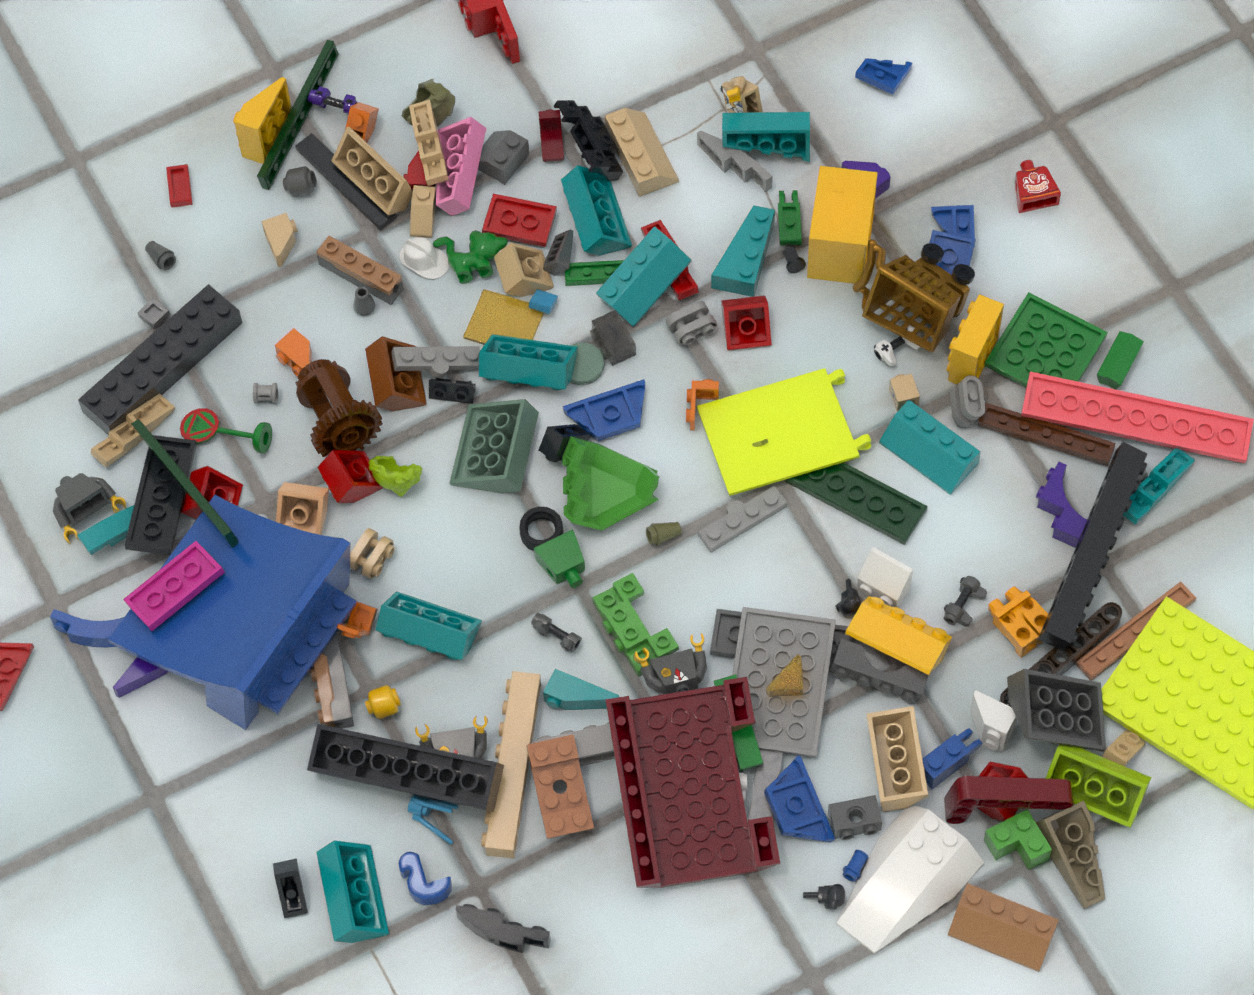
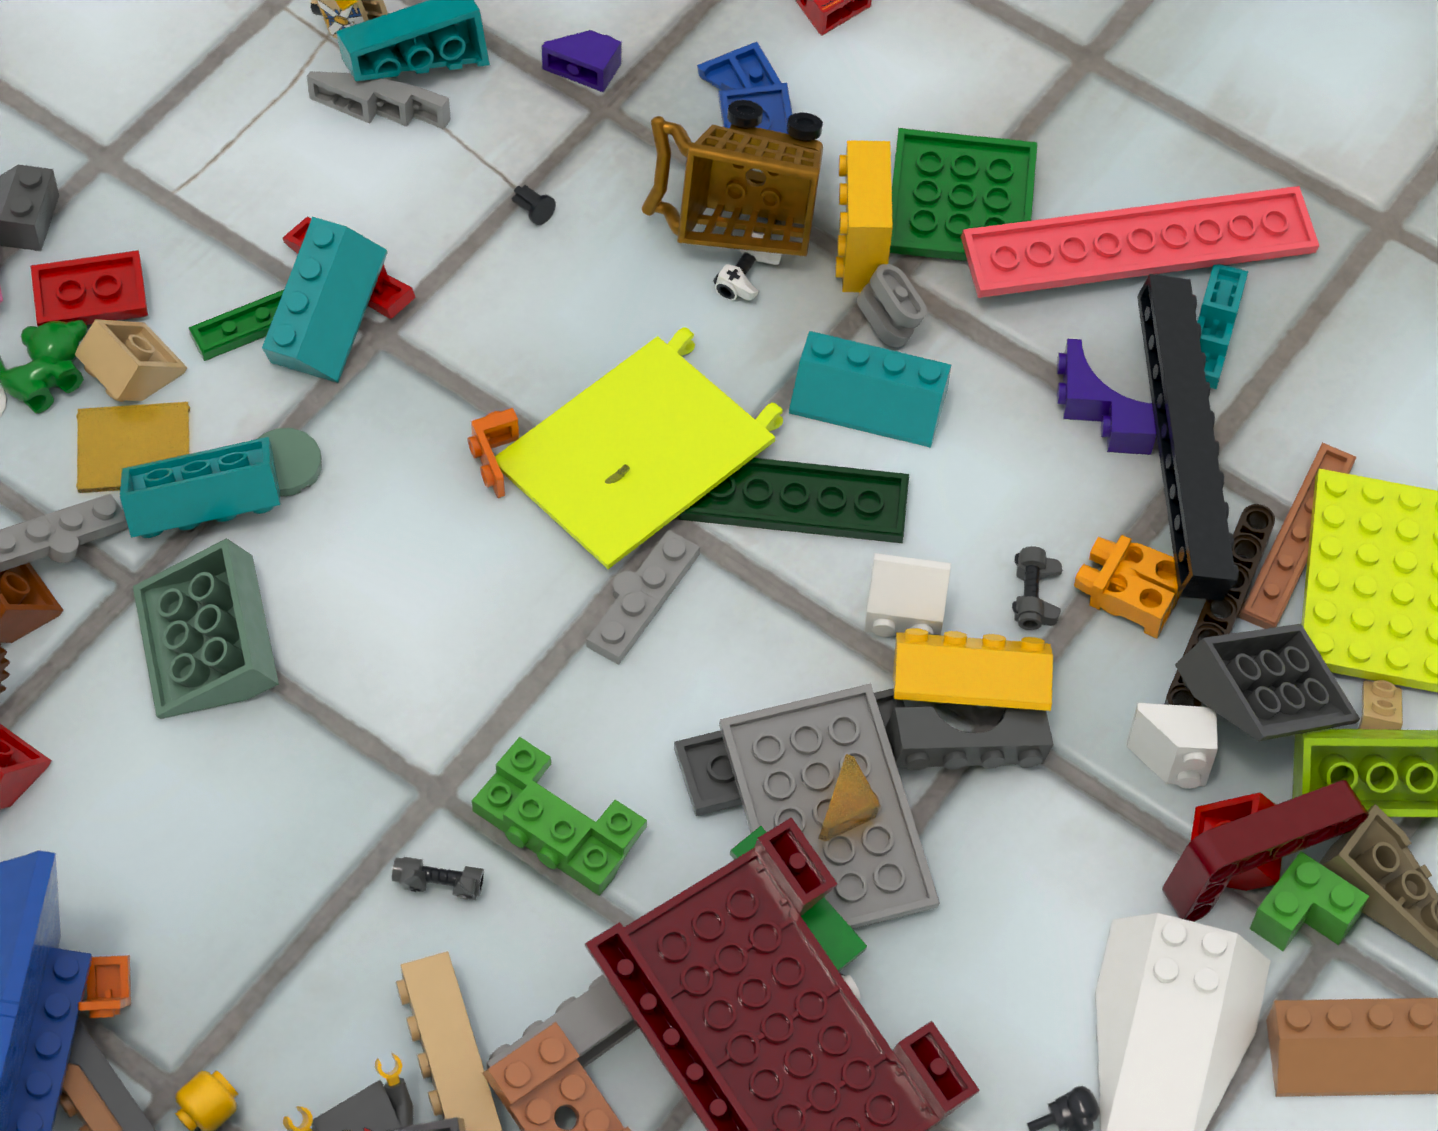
camera: 30 degrees left, 5 degrees down
(374, 564) = (94, 860): tan brick -> none
(392, 476) = (62, 739): lime hair -> none
(427, 625) = (224, 950): teal slope -> none
(447, 390) = (96, 575): black hinge -> none
(536, 514) = (329, 704): black tyre -> none
(543, 301) = (181, 393): dark azure tile -> none
(551, 135) = (81, 155): dark red bracket -> none
(557, 438) = (311, 585): black slope -> none
(559, 253) = (175, 315): dark grey slope -> none
(562, 559) = (394, 761): green torso -> none
(574, 693) = (513, 961): teal slope -> none
(592, 139) = (150, 137): black bracket -> none
(595, 212) = (201, 238): teal slope -> none
(604, 484) = (409, 623): bright green panel -> none
(609, 411) = (362, 515): blue wing -> none
(613, 338) = (317, 406): clear smoke brick -> none
(640, 151) = (227, 134): tan slope -> none
(661, 532) = (529, 663): olive cone -> none
(674, 671) = (660, 861): dark grey torso -> none
(691, 323) = (427, 343): light grey brick -> none
(745, 256) = (462, 224): teal wedge -> none
(746, 322) = (509, 313): red slope -> none
(764, 777) = (885, 984): flat silver tile -> none
(789, 220) = (500, 151): green hinge -> none
(797, 805) = (950, 989): blue wing -> none
(841, 224) = (590, 122): yellow piece -> none
(849, 601) = (868, 653): black piece -> none
(852, 870) = (1085, 1054): blue pin -> none
(864, 808) = (1057, 954): dark grey brick -> none
(897, 758) = (1067, 855): tan slope -> none
(903, 389) = (788, 326): tan brick -> none
(948, 758) = (1136, 828): blue hinge -> none
(1047, 434) = (1027, 311): reddish brown plate -> none
(1119, 359) = (1071, 175): green piece -> none

